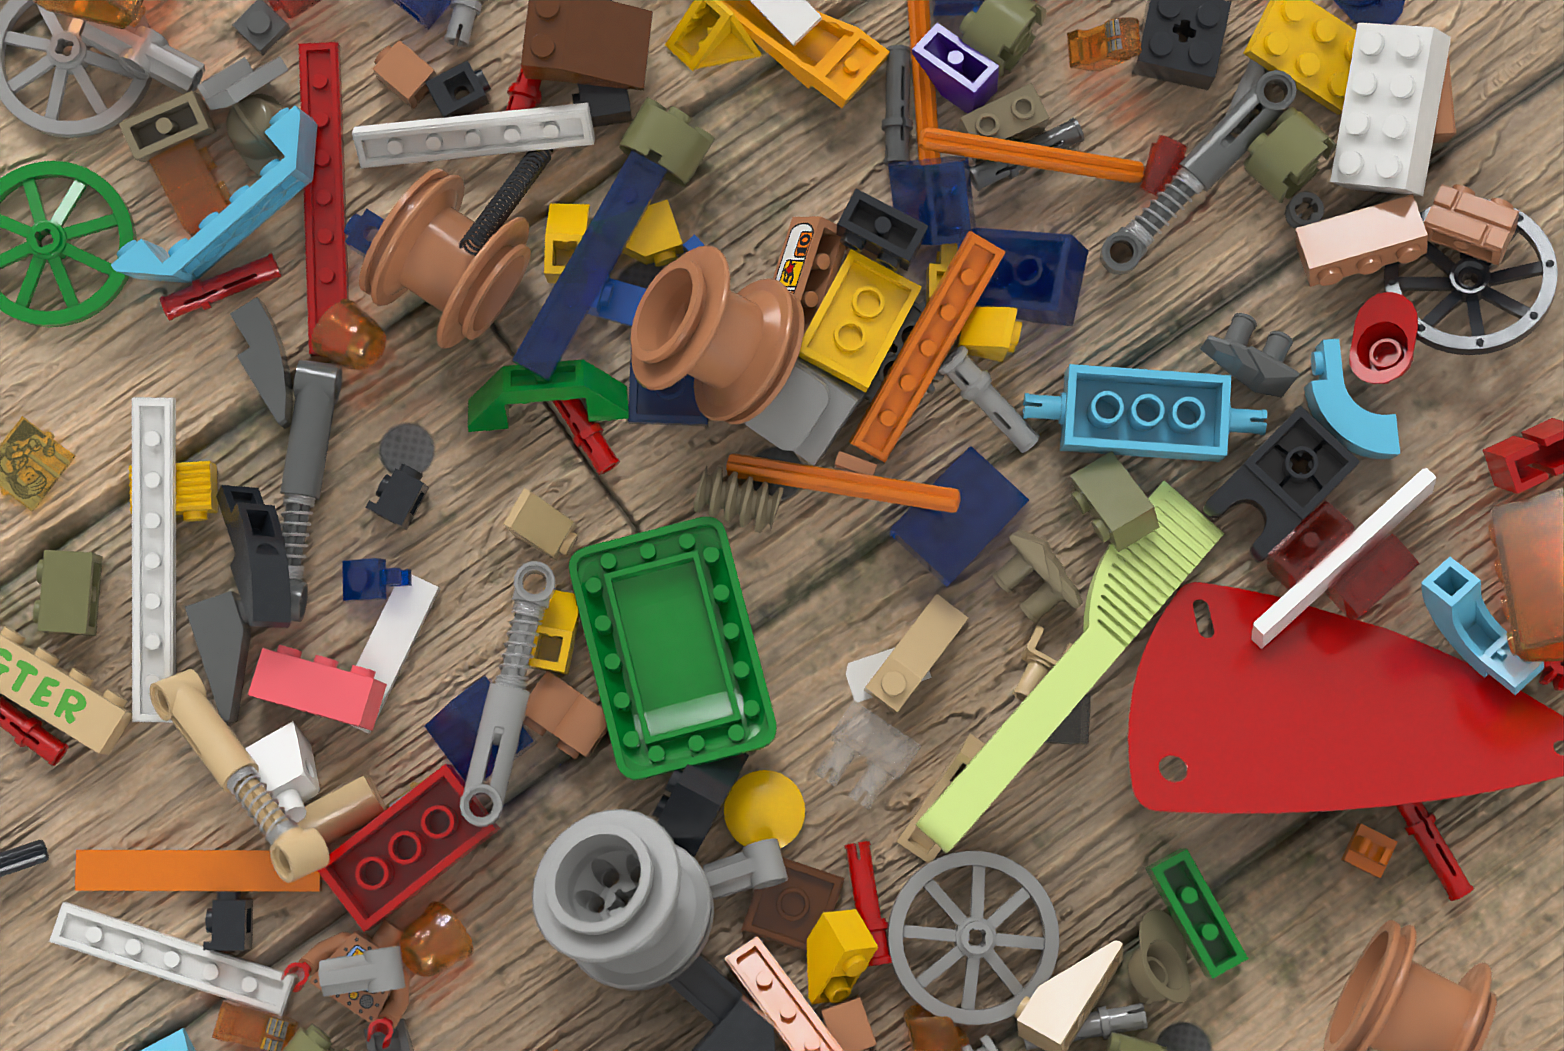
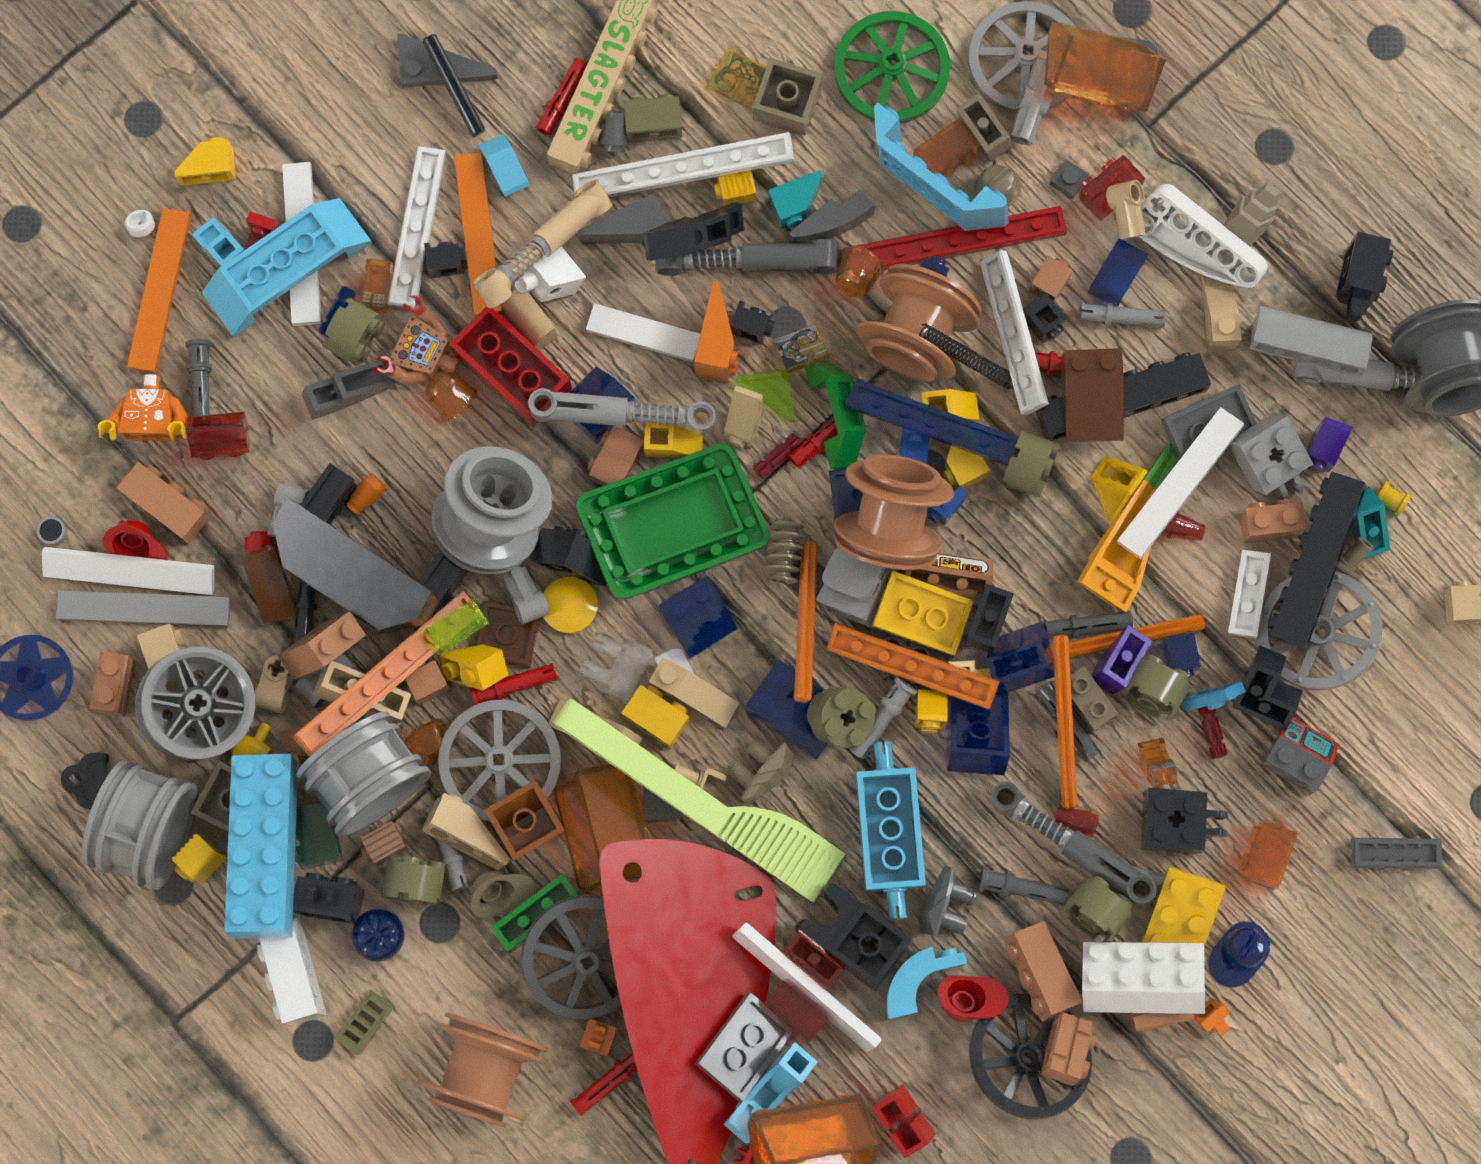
camera: 85 degrees right, 5 degrees down
(72, 395) = (787, 96): none -> dark tan brick
(82, 651) = (614, 133): none -> dark grey cone
(101, 818) = (504, 165): none -> medium azure slope
(219, 287) = (874, 172): red pin -> none
(227, 411) = (794, 199): none -> teal slope
(238, 82) = (1024, 167): light grey slope -> none
(318, 687) = (611, 289): coral brick -> none
(369, 578) = (691, 313): clear blue plate -> none
(371, 971) = (423, 353): light grey piece -> none
(425, 547) = (715, 351): none -> orange slope
(448, 432) = (801, 348): none -> piece
(499, 482) = (775, 391): none -> clear neon green tile
(596, 489) = (777, 456): none -> dark red axle
(778, 973) = (457, 626): none -> clear neon green tile
(811, 633) = (697, 617): none -> clear blue slope
(854, 464) = (820, 630): nougat tile -> none
(941, 710) = (655, 715): none -> yellow brick
(983, 454) = (856, 717): none -> olive brick
(1069, 912) = (524, 820): none -> dark orange slope
(1082, 808) = (595, 811): none -> clear orange windscreen
(1114, 502) = (822, 815): olive brick -> none
(1235, 268) = (1008, 884): none -> dark grey pin
(1264, 861) = (578, 952): none -> dark grey wheel
(1308, 197) = (1065, 923): dark grey bush -> none
(1412, 653) = (744, 1047): none -> plate
(1452, 27) = (1213, 1018): none -> orange tile

